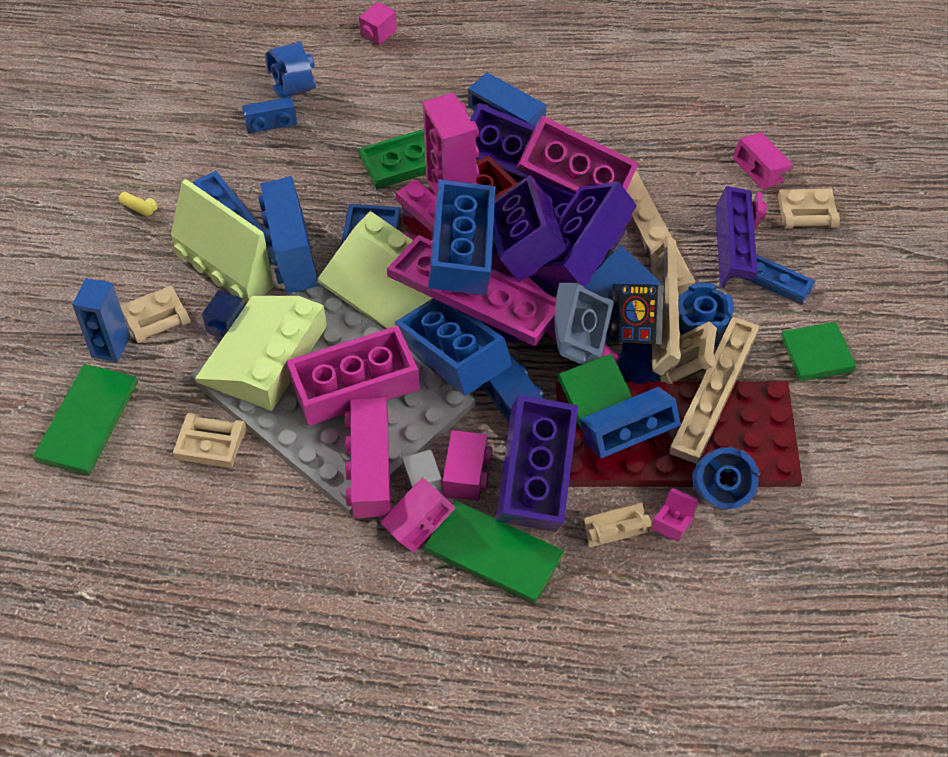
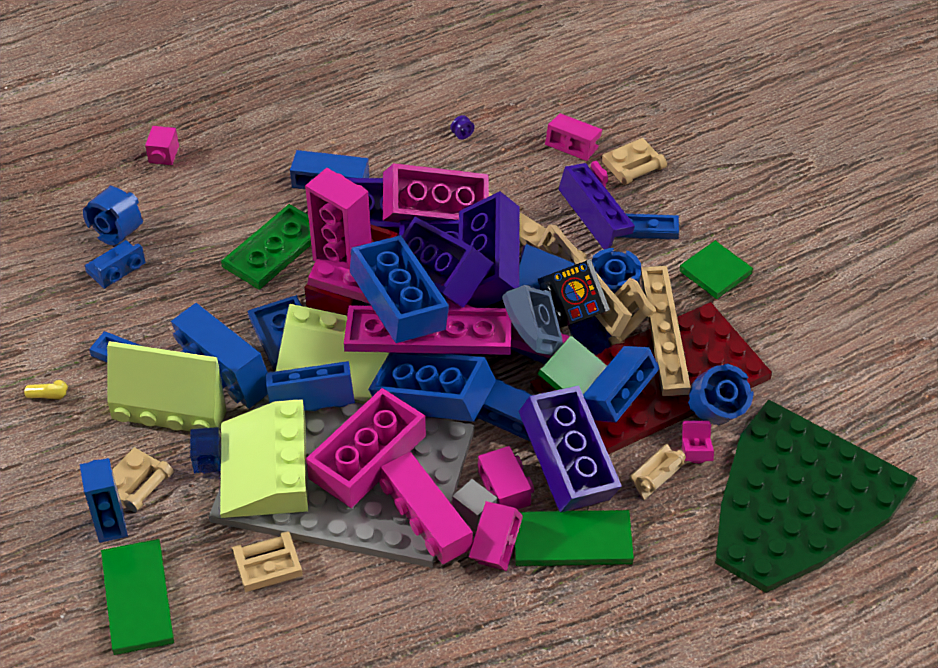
camera: 30 degrees left, 5 degrees down
(345, 297) = (315, 385): none -> blue brick
(656, 110) = (462, 127): none -> dark purple bush
(746, 622) = (800, 499): none -> dark green piece

